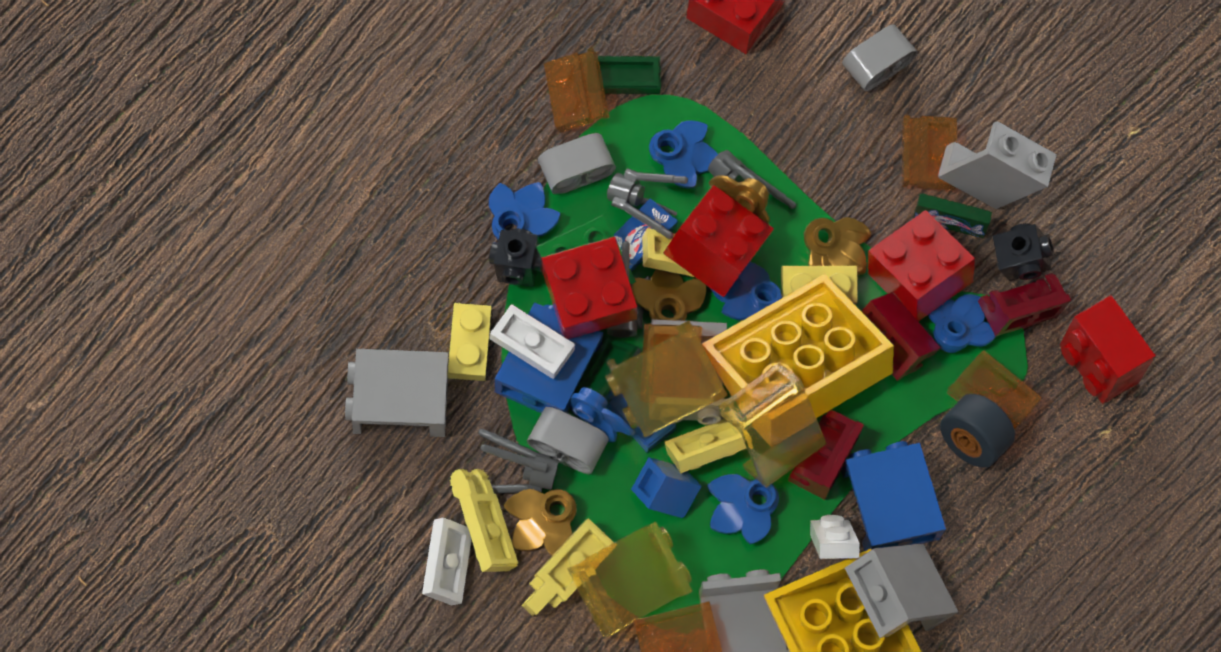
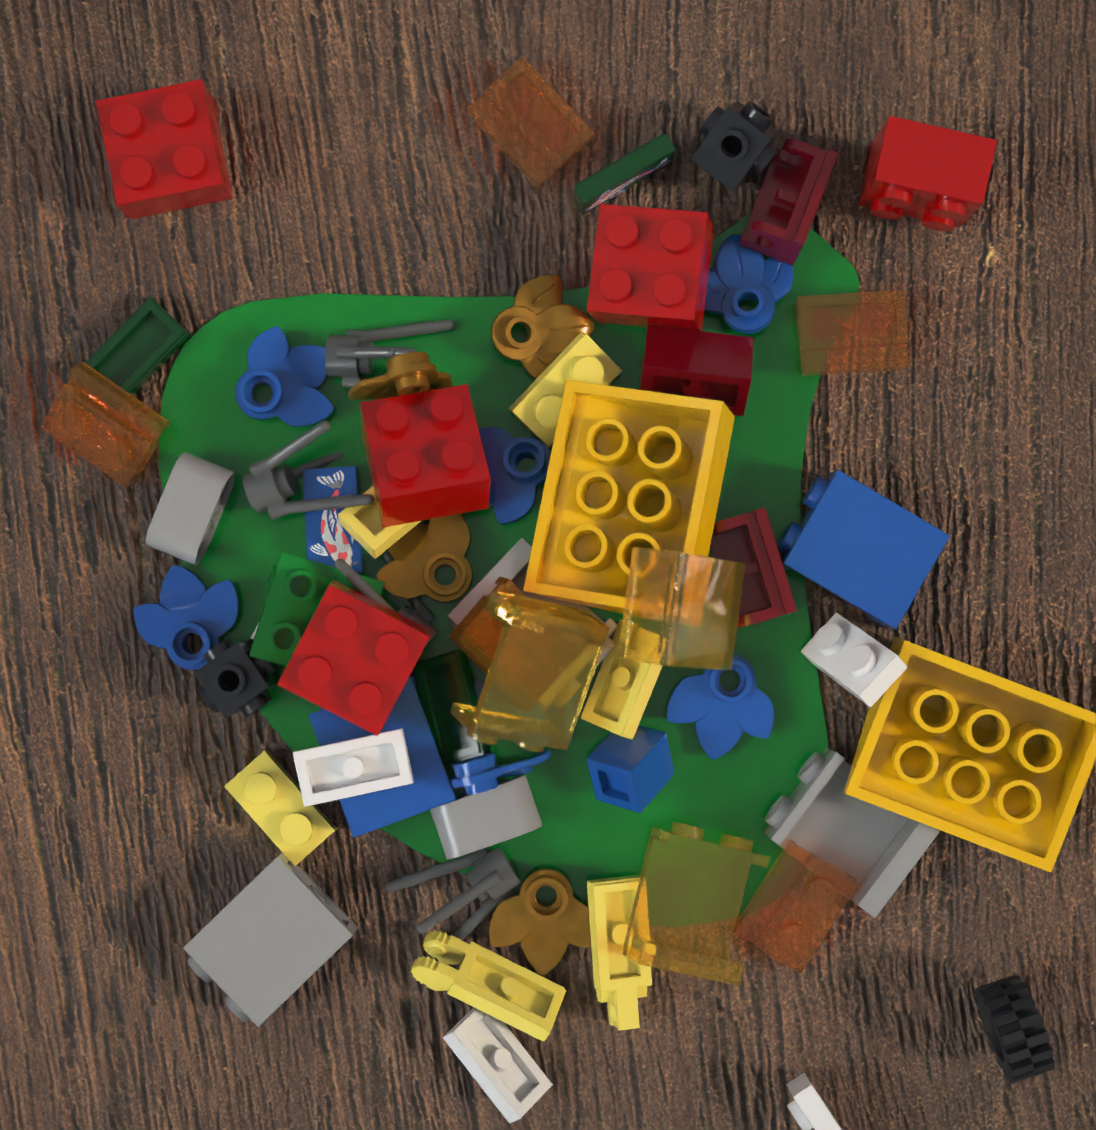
camera: 35 degrees left, 20 degrees up
(879, 57) = (375, 64): light grey beam -> none
(900, 588) = (975, 650): light grey panel -> none
(977, 430) = (878, 393): black wheel -> none
(1001, 172) = (643, 74): light grey panel -> none

